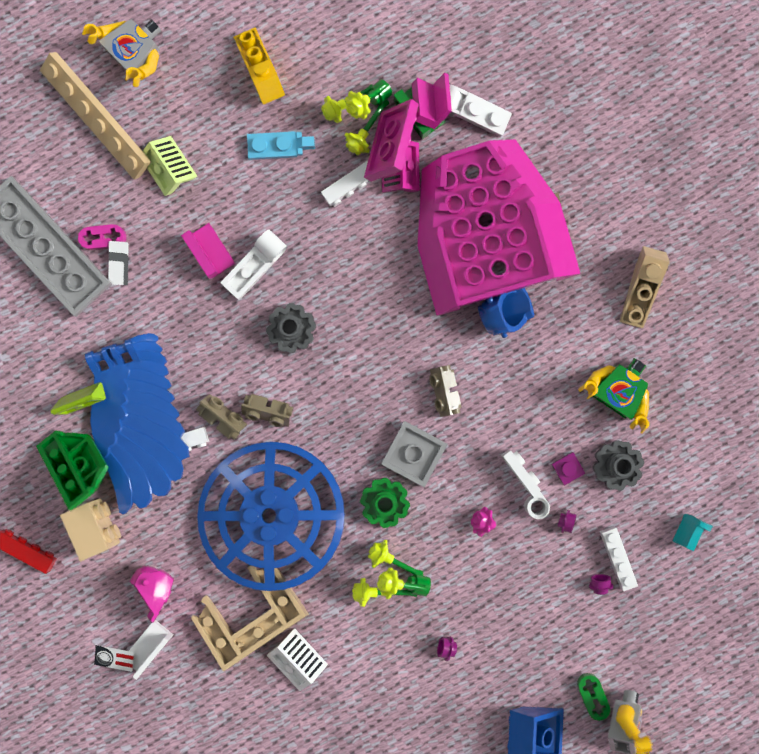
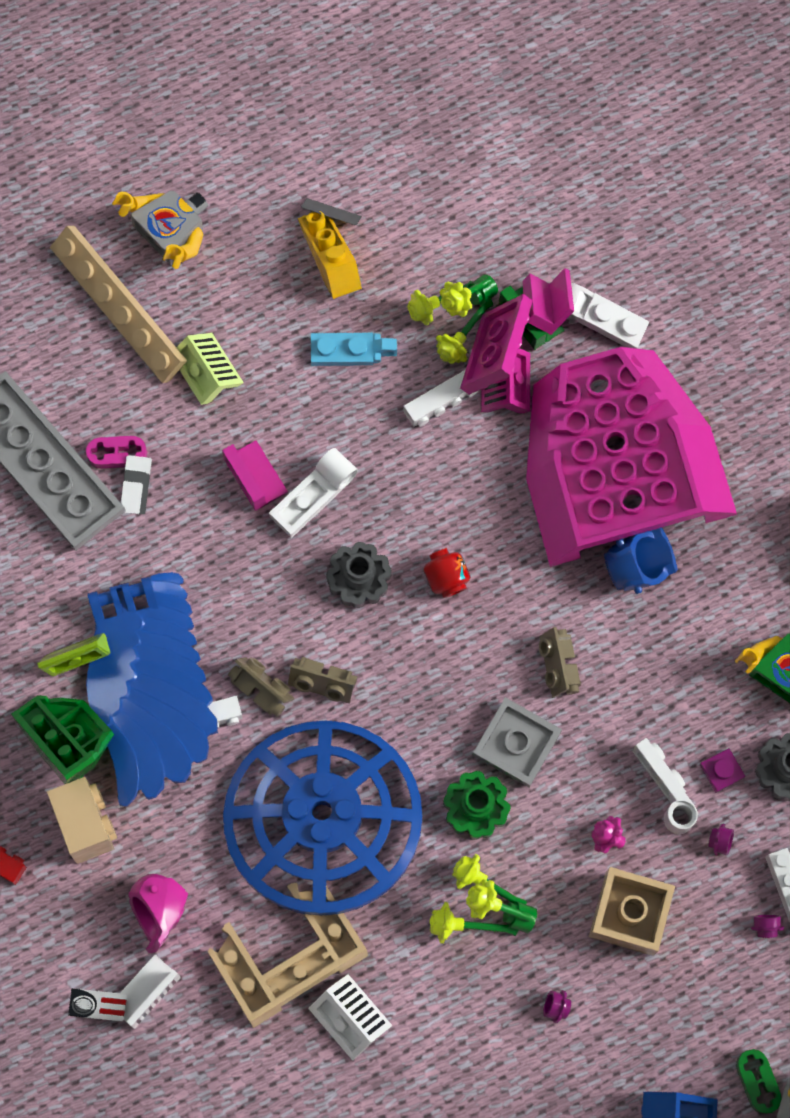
camera: 10 degrees left, 15 degrees down
(259, 30) = (331, 211): none -> dark grey sticker
(358, 325) = (447, 573): none -> red head
(501, 581) = (632, 911): none -> tan brick

